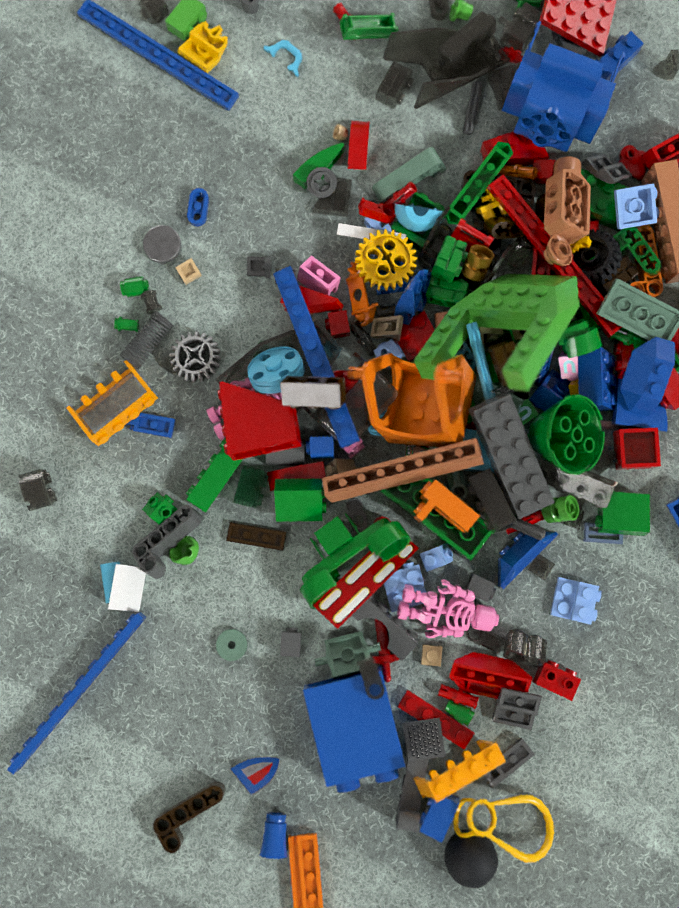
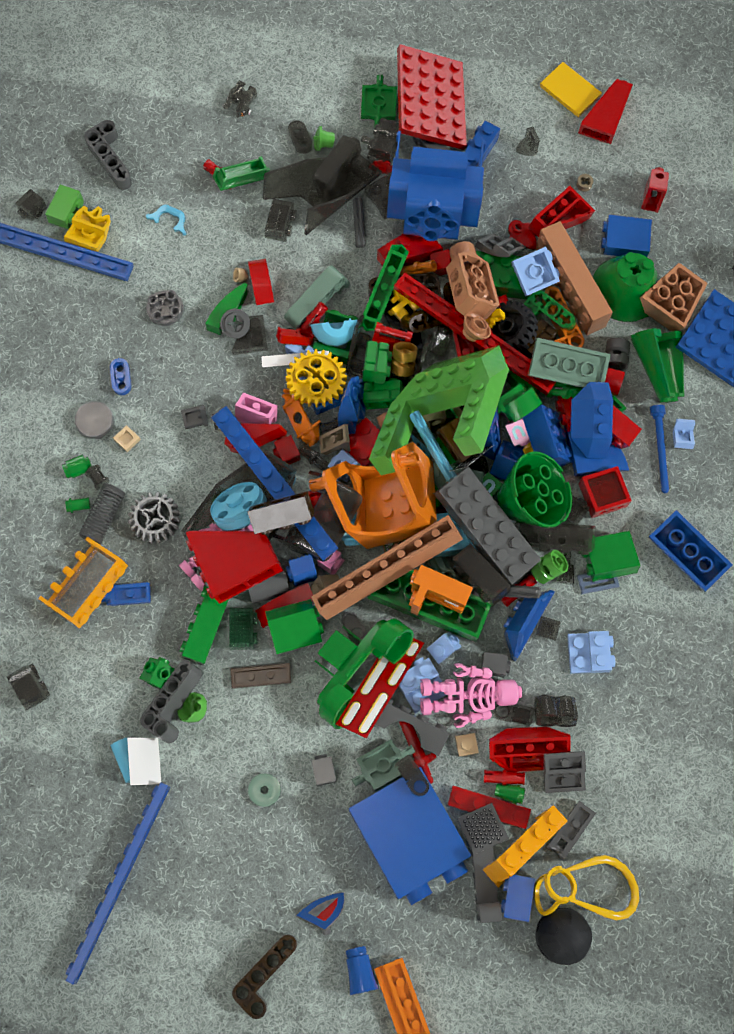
camera: 20 degrees left, 10 degrees down
(258, 147) = (164, 307): none -> flat silver tile
(556, 680) = (595, 733): red brick -> none

